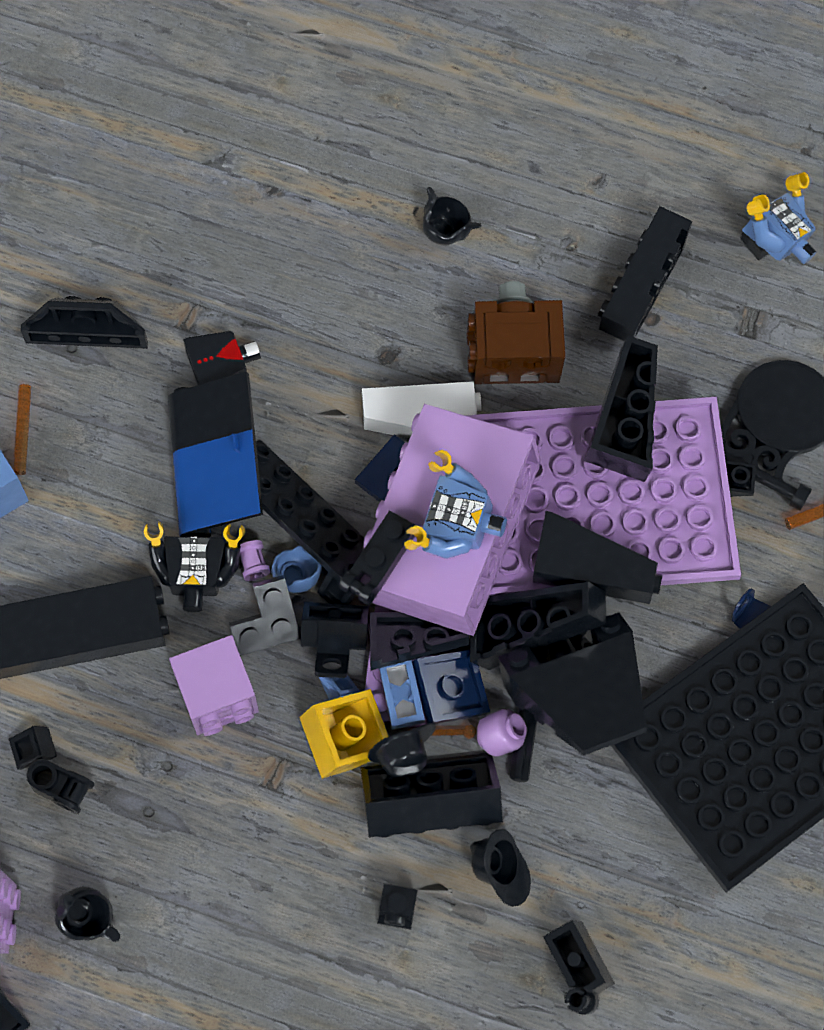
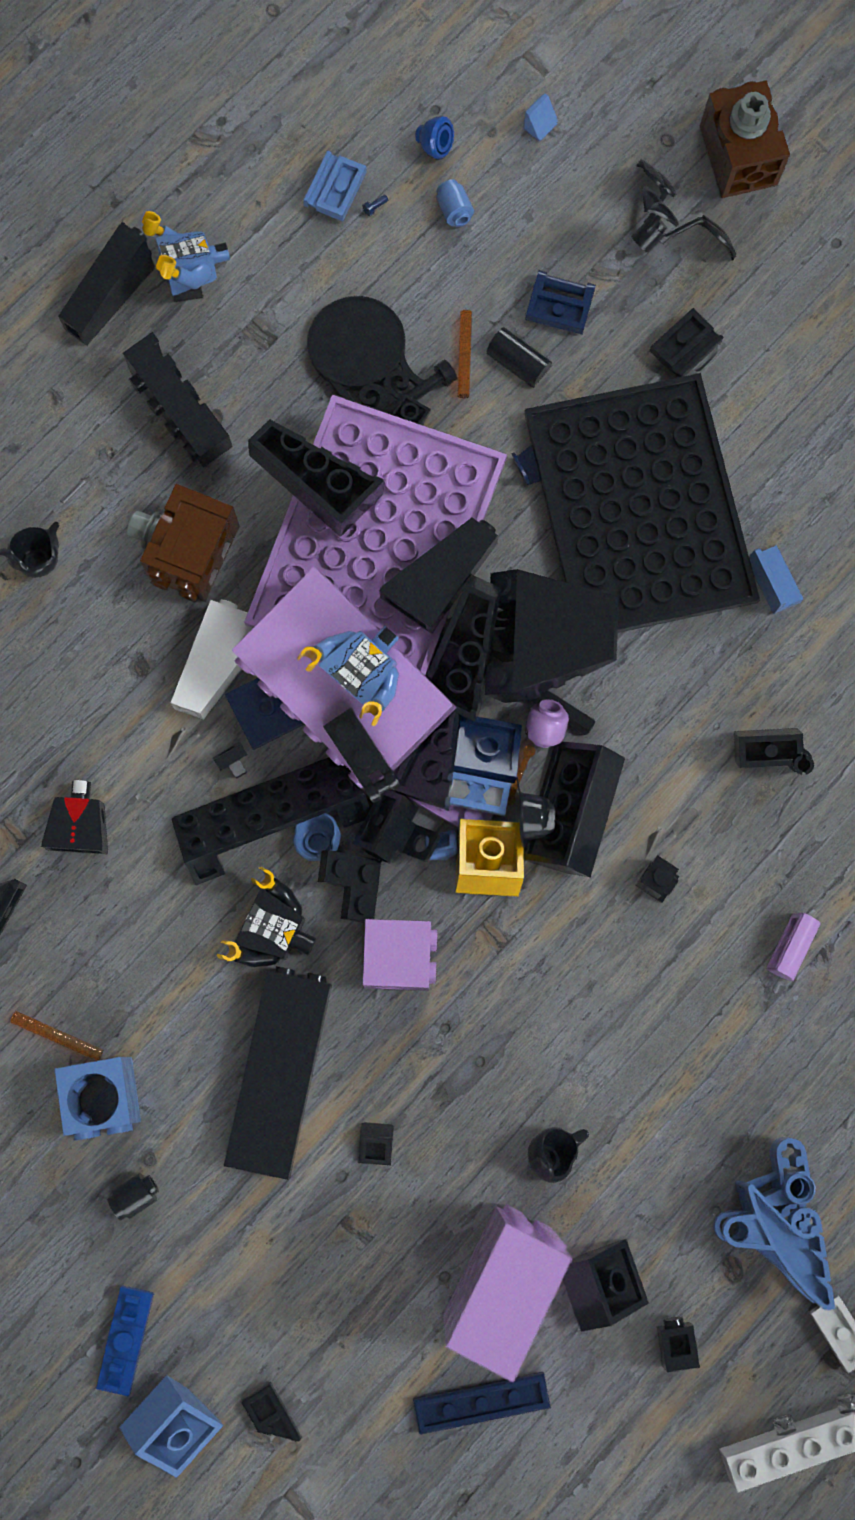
camera: 65 degrees left, 10 degrees up
(64, 788) = (427, 1130): black piece -> none
(214, 455) = (174, 864): door -> none
(253, 560) = (290, 872): lavender bush -> none
(335, 466) = (231, 758): none -> black tile
(501, 864) = (662, 776): black piece -> none
(723, 173) = (108, 283): none -> black slope
(759, 900) = (775, 579): none -> medium blue panel

